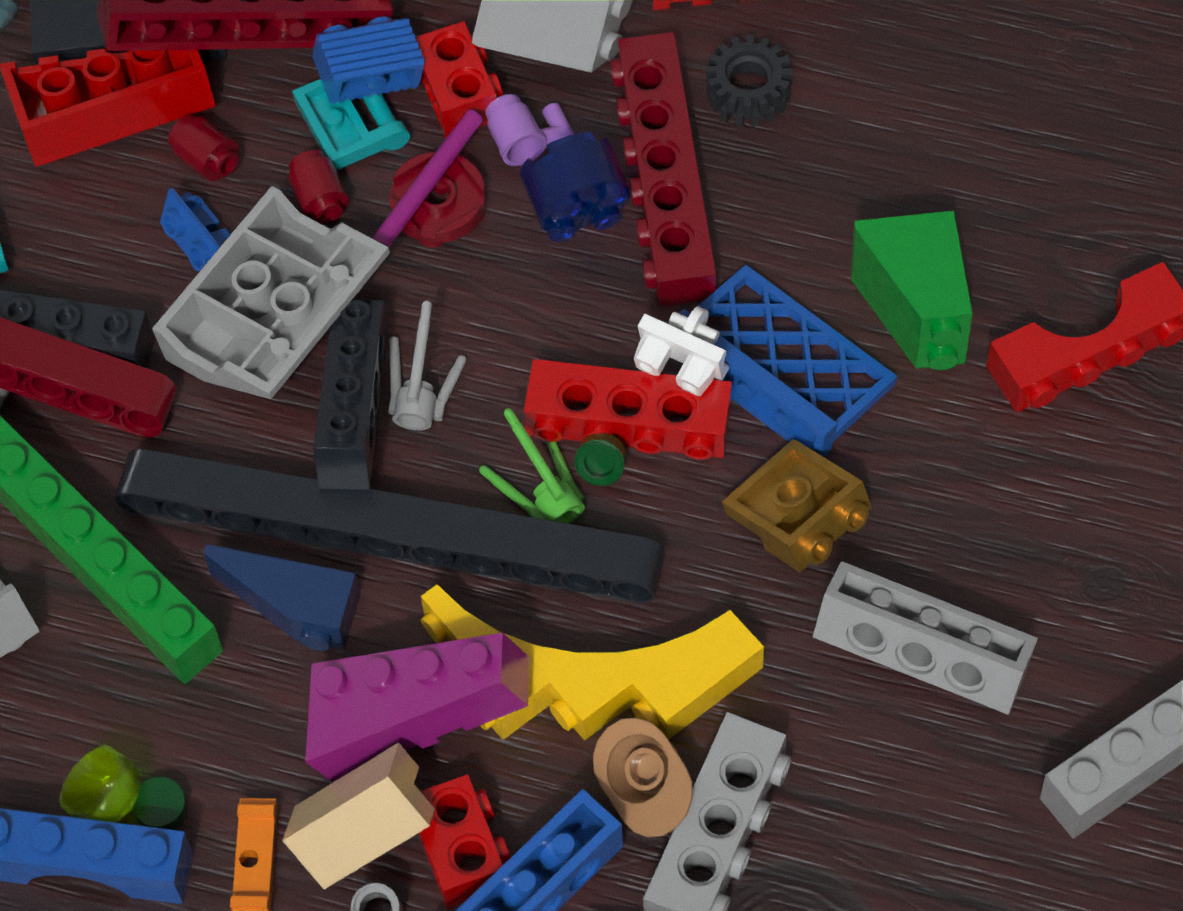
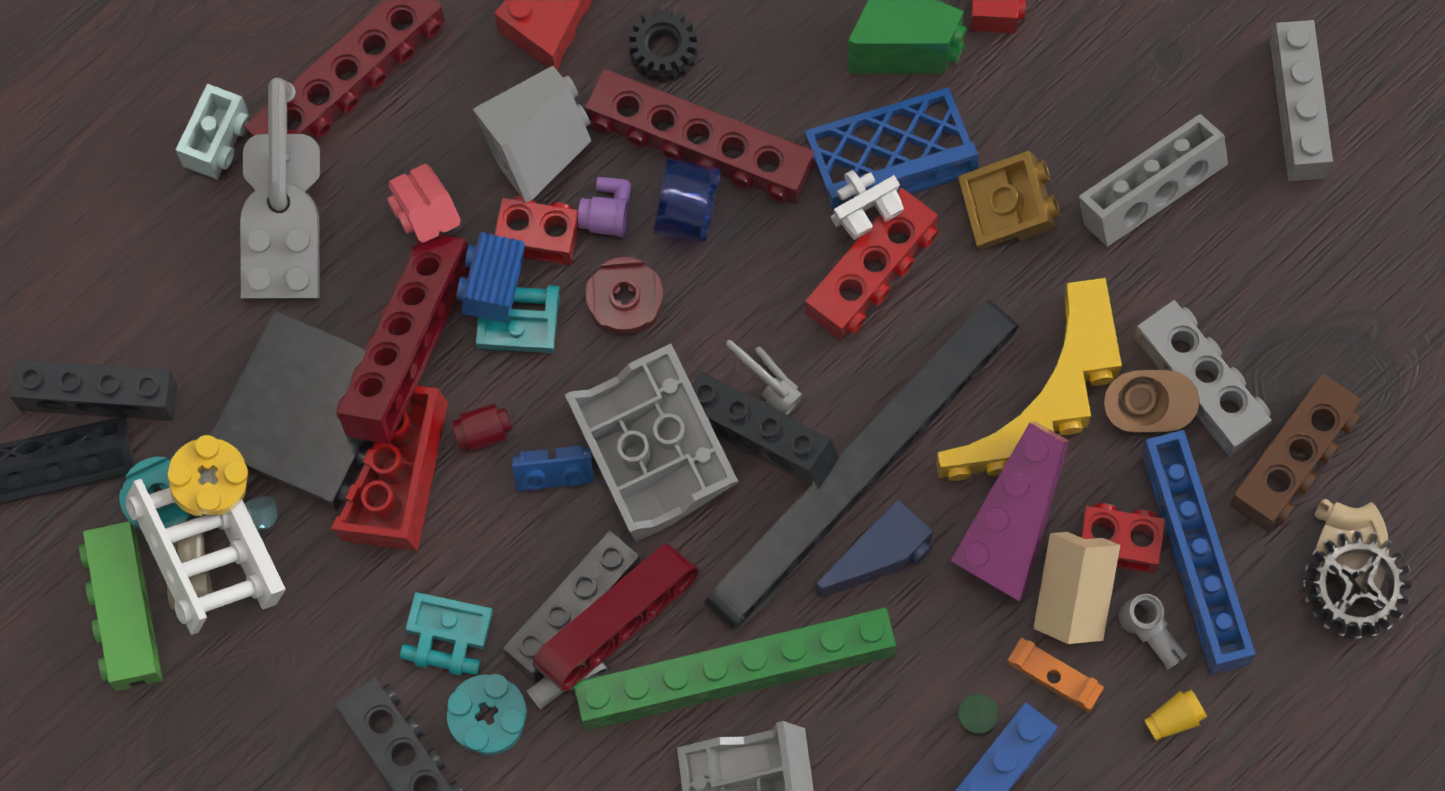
camera: 60 degrees left, 10 degrees up
(101, 786) = (952, 743): clear neon green hair -> none
(317, 186) = (566, 368): dark red brick -> none
(428, 178) = (614, 293): magenta bar -> none
(556, 498) = (909, 345): bright green plant -> none
(600, 459) = (898, 302): dark green tile -> none

